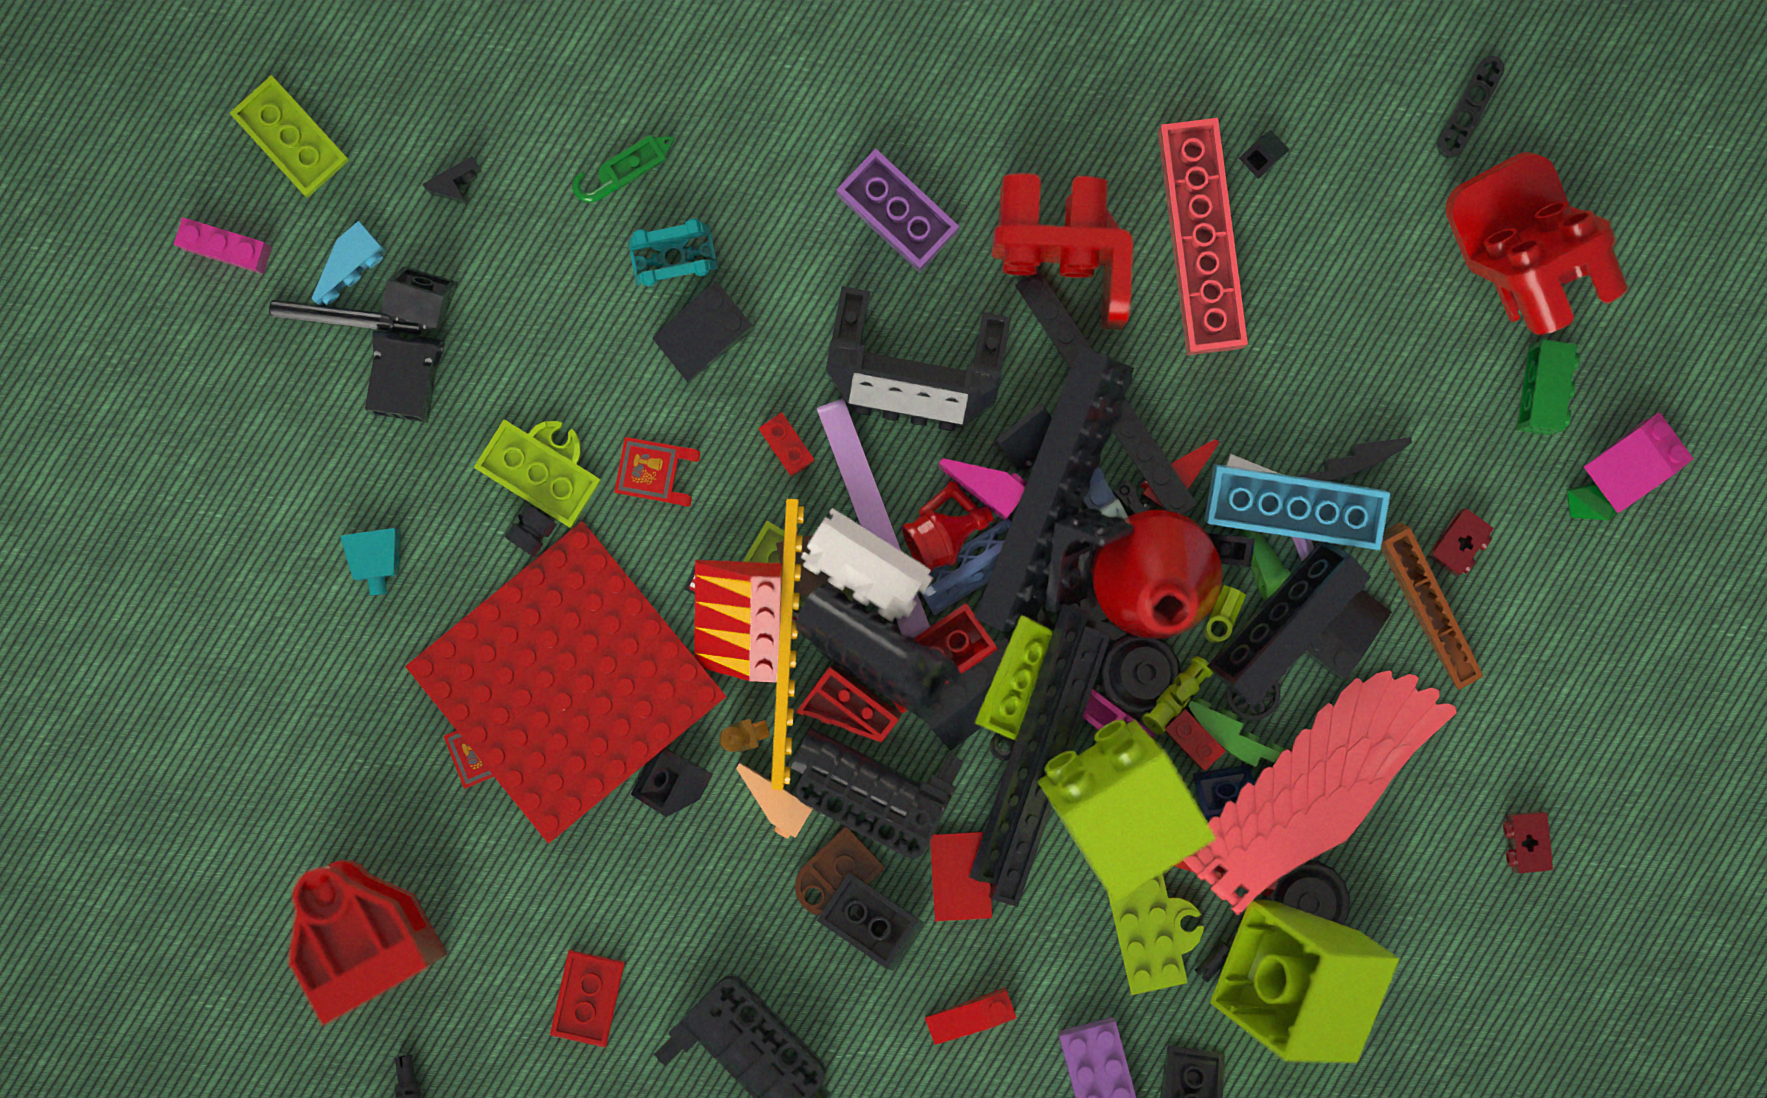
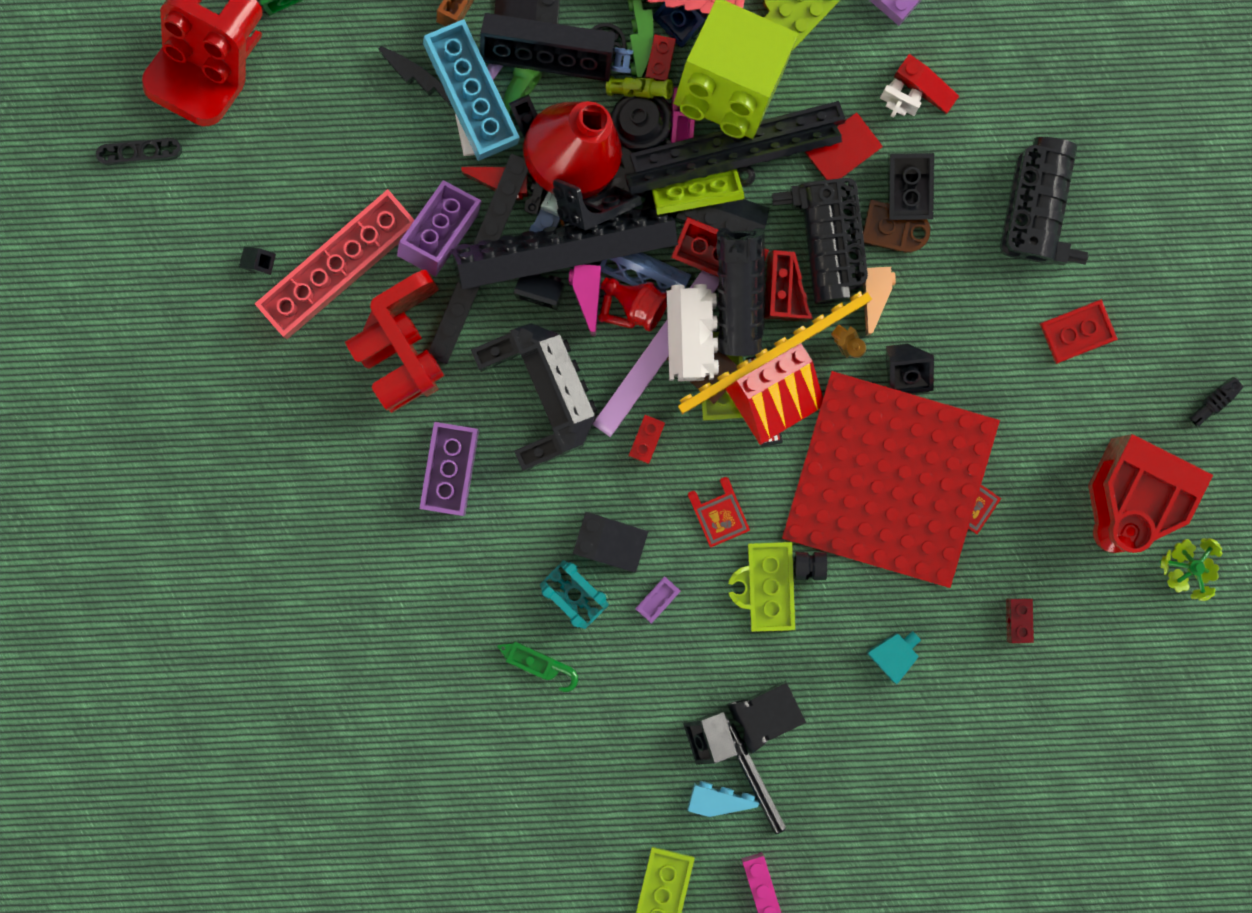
camera: 125 degrees left, 0 degrees up
(237, 956) = (1202, 569): none -> lime plant
(318, 717) = (1019, 620): none -> dark red brick
(446, 183) = (625, 771): black slope -> none
(606, 342) = (657, 599): none -> medium lavender plate
(969, 973) = (899, 101): none -> white hips
(1167, 371) = (439, 228): none -> medium lavender brick
(1214, 687) = (626, 61): none -> medium blue bush
(1224, 612) = (566, 92): lime piece -> none

